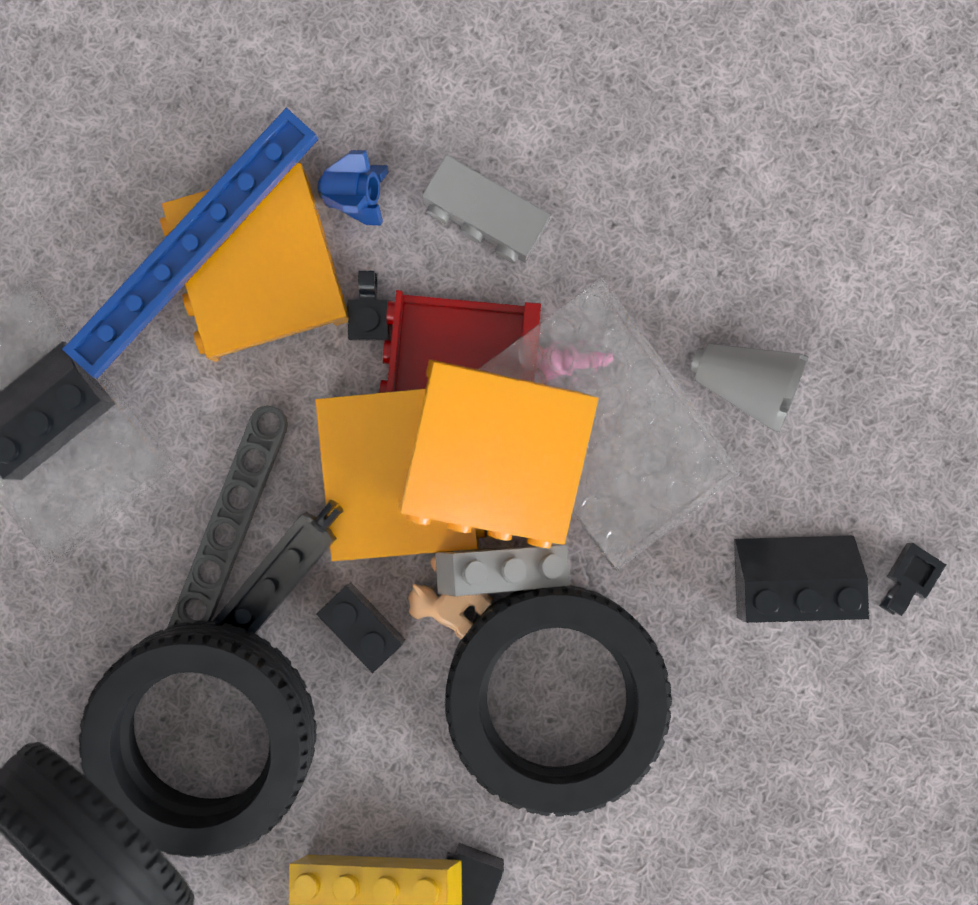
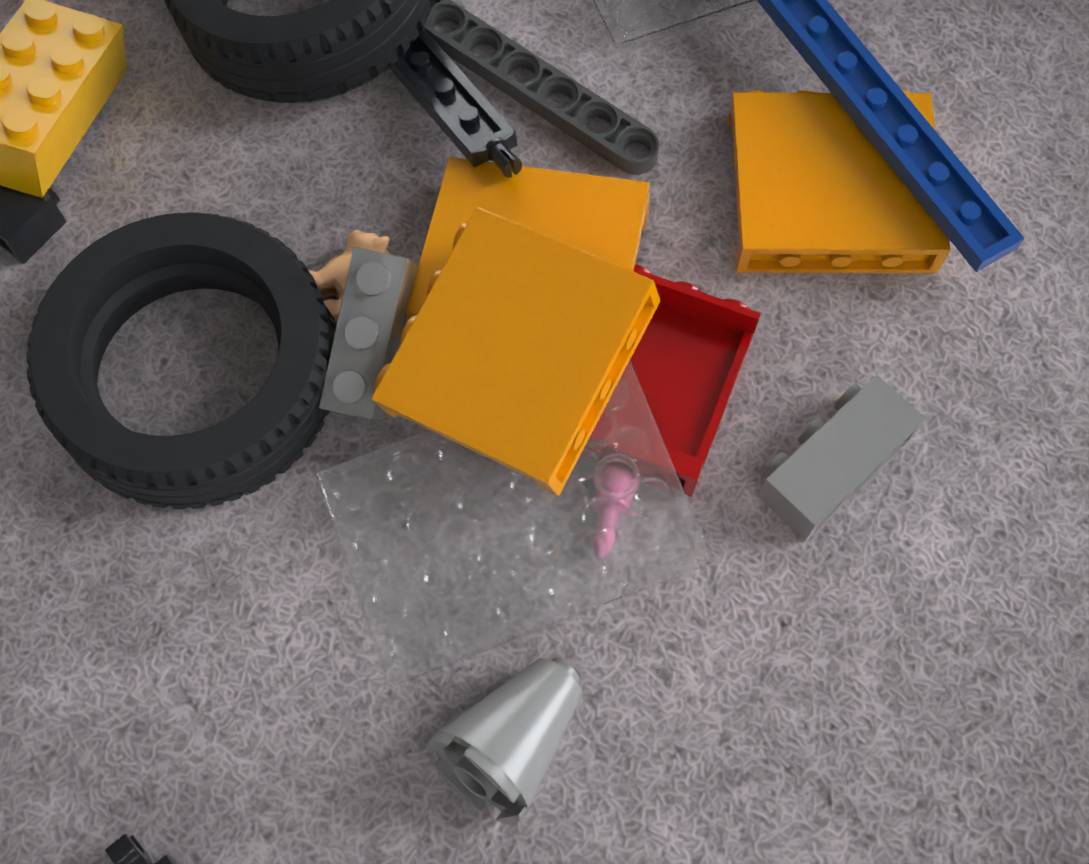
camera: 105 degrees right, 20 degrees down
(354, 187) = (903, 307): blue brick -> none
(361, 627) = (360, 174): black brick -> none
(368, 314) = (744, 283): black plate -> none
(800, 579) = (212, 721): black slope -> none

